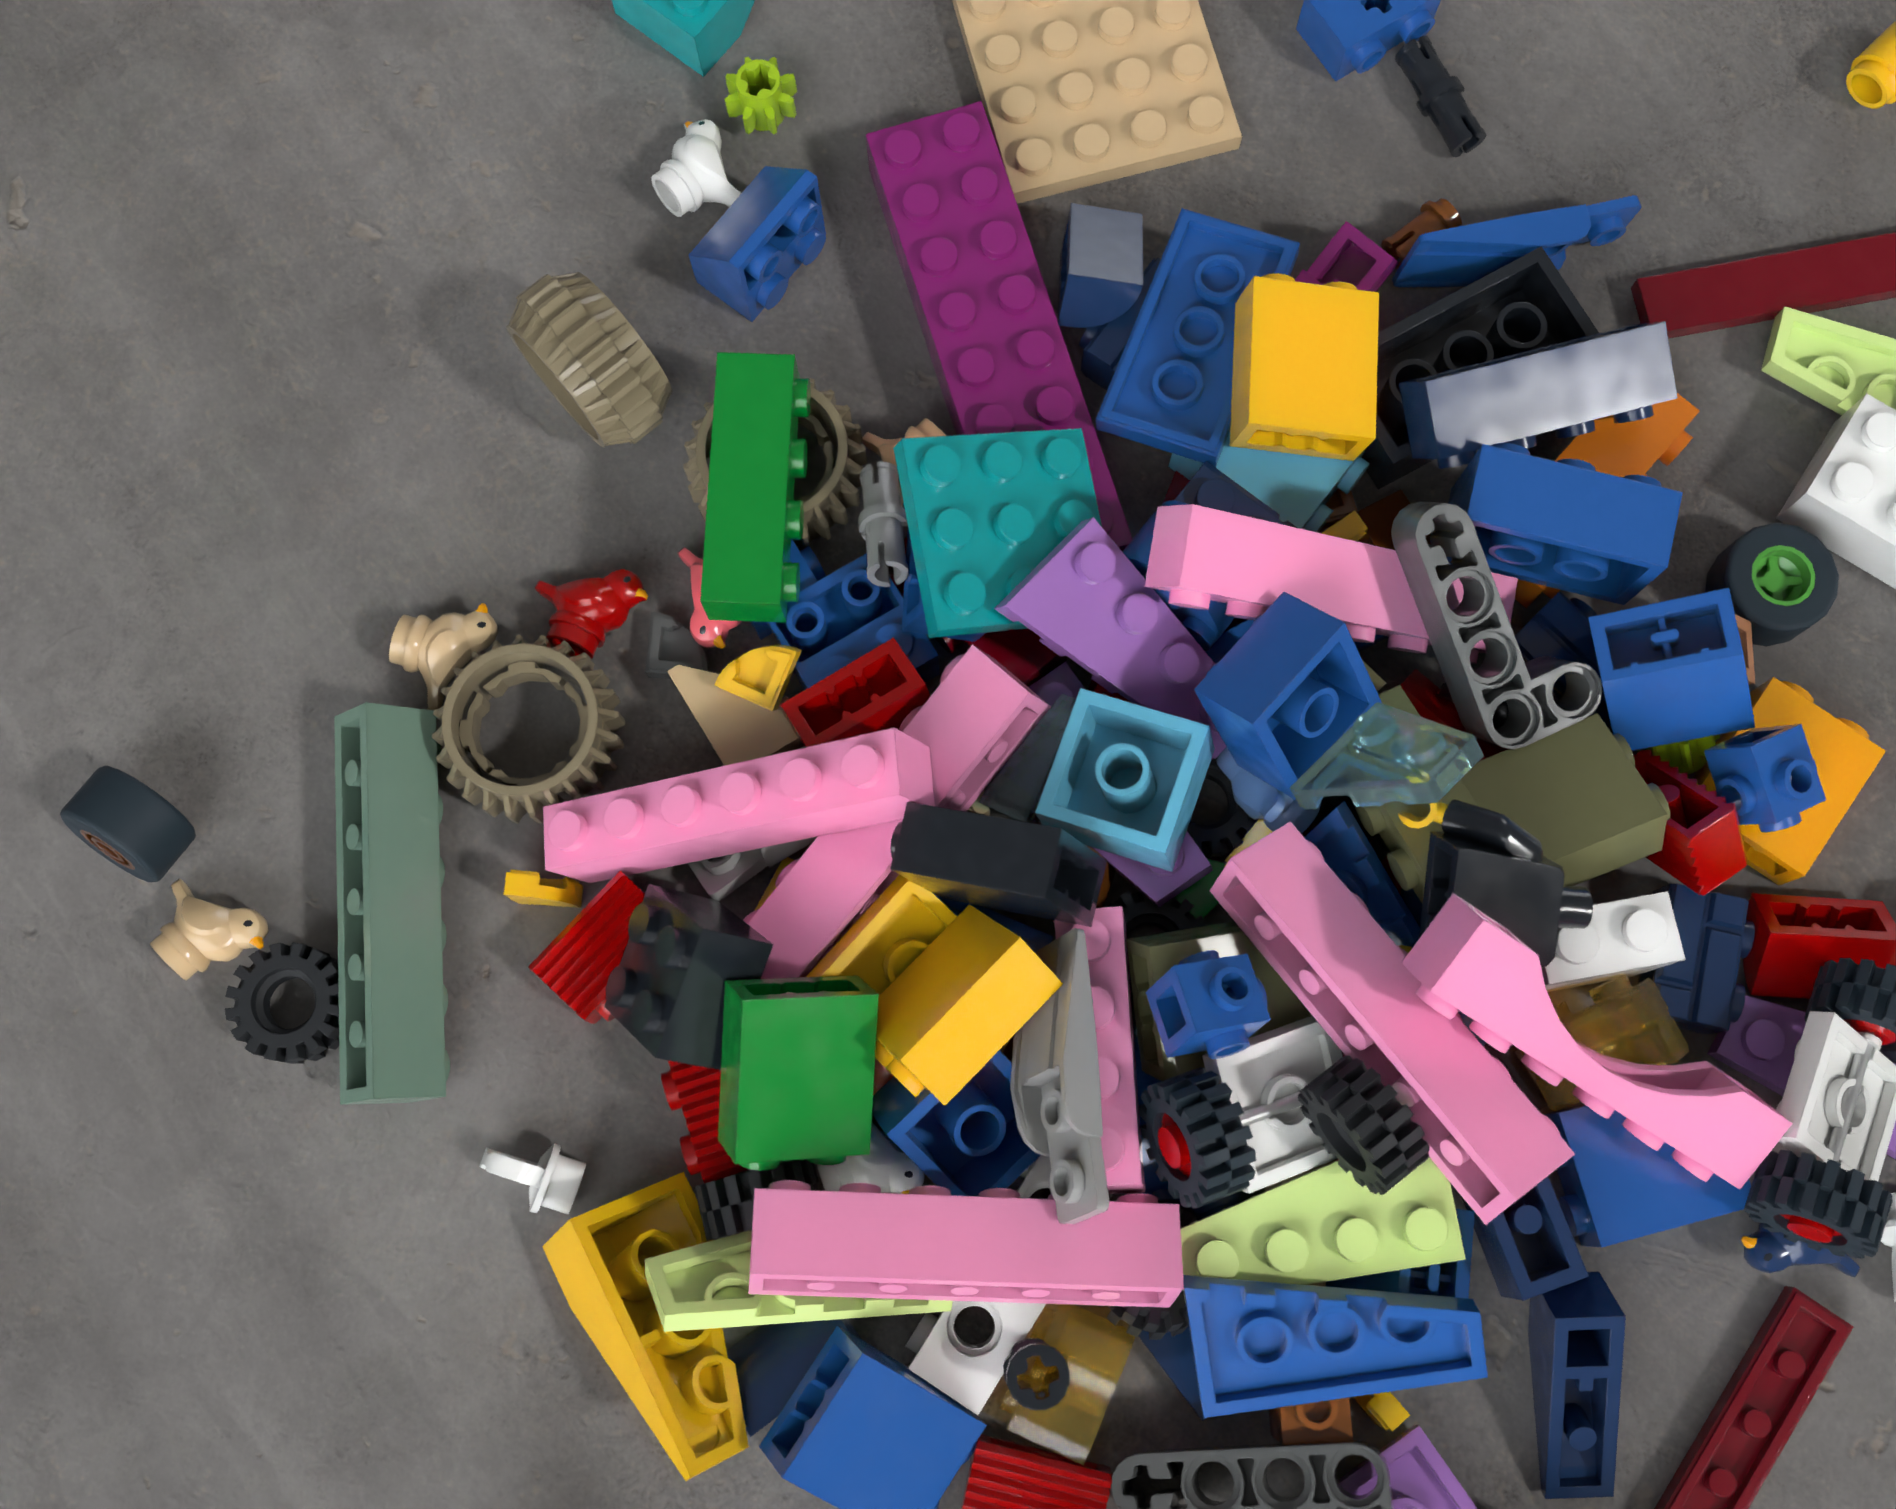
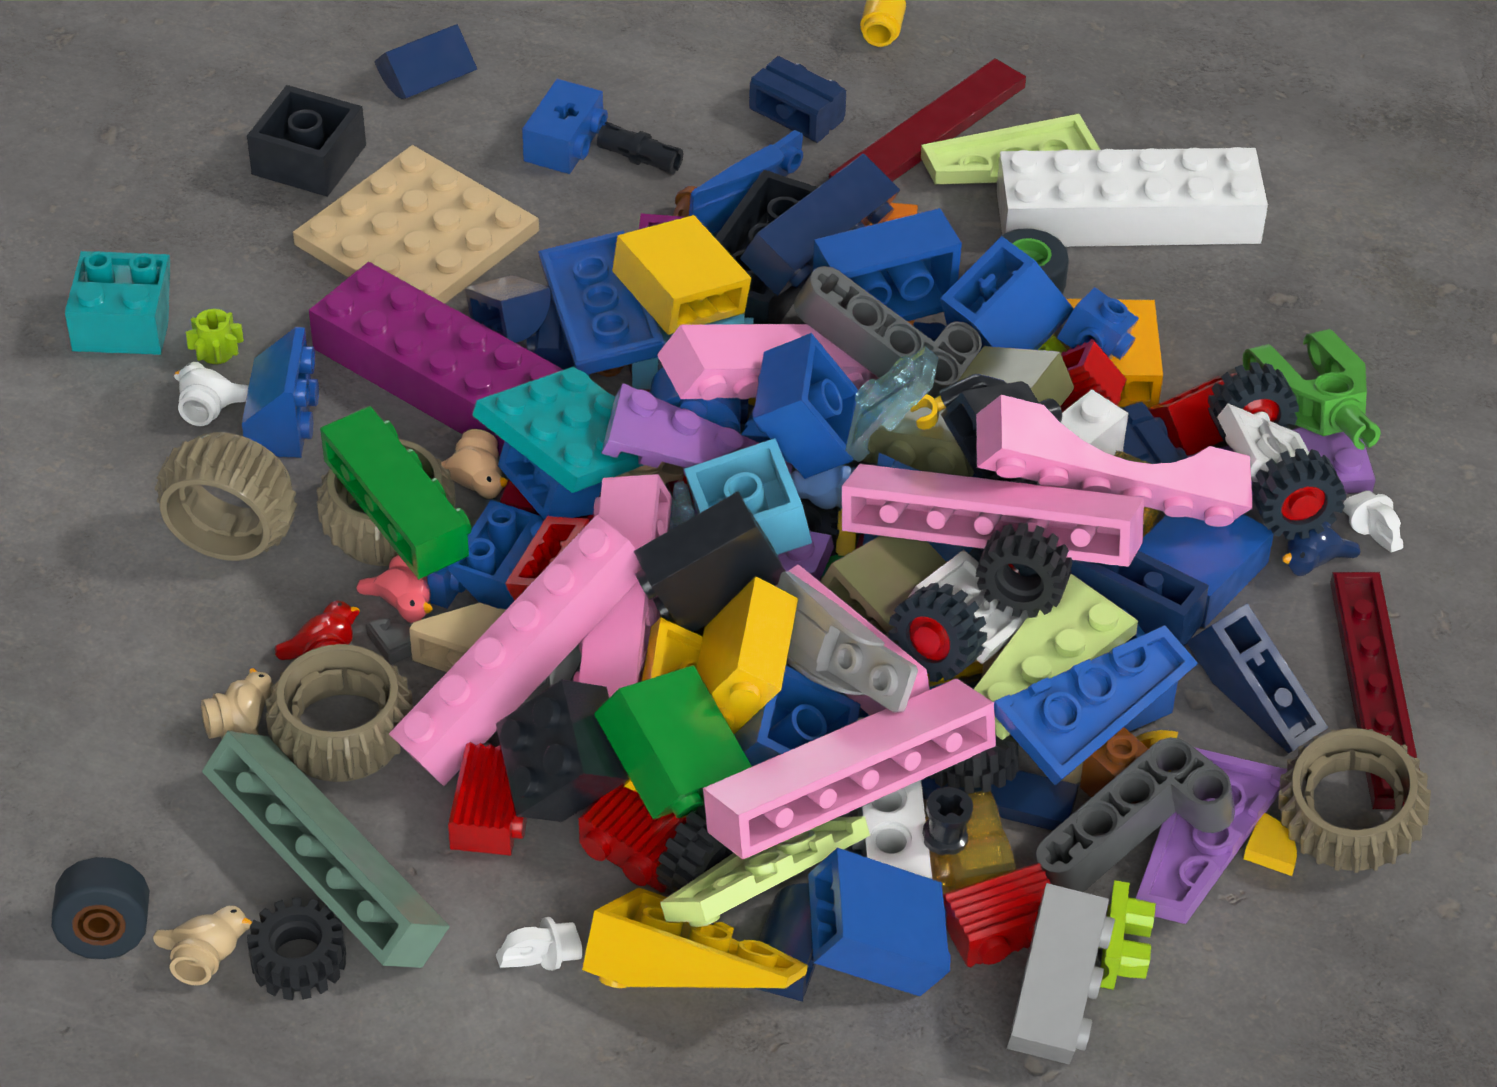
camera: 40 degrees left, 30 degrees down
(530, 889) = (416, 798): yellow tile -> none
(760, 674) = (474, 591): yellow tile -> none
(883, 524) = (488, 480): light grey pin -> none
(1208, 1005) = (889, 559): blue brick -> none
(1686, 135) = (797, 98): none -> dark blue brick

